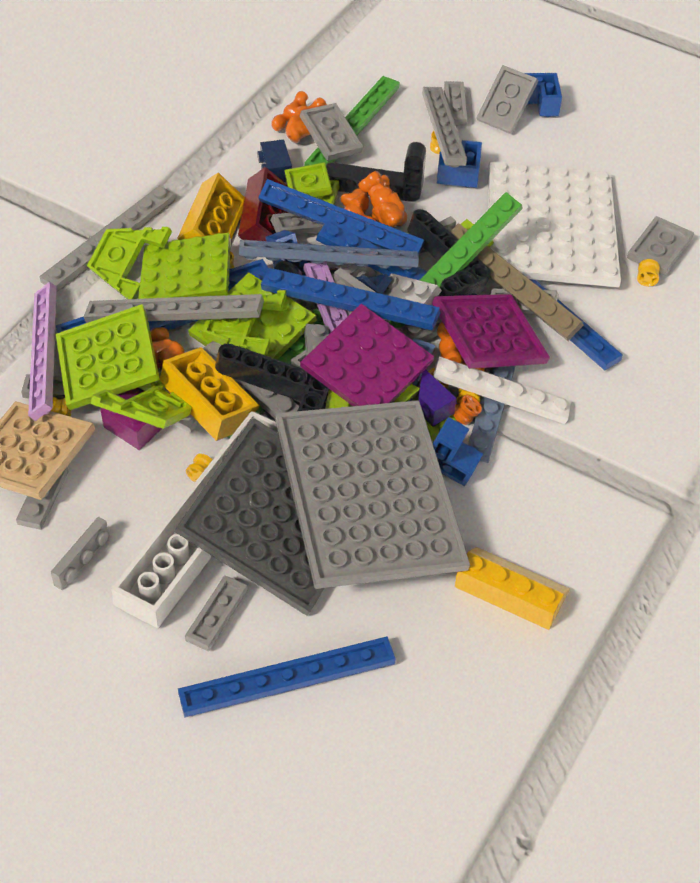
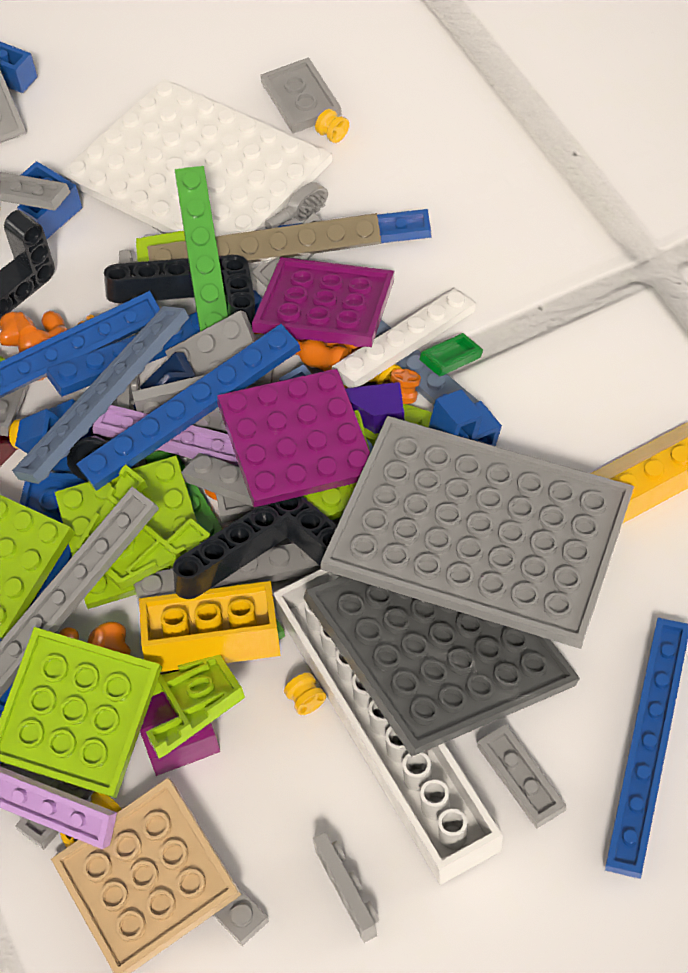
camera: 50 degrees left, 5 degrees up
(385, 202) = (56, 301): orange animal -> none
(513, 424) = (451, 354): none -> green tile
(568, 288) = (301, 205): none -> light grey piece

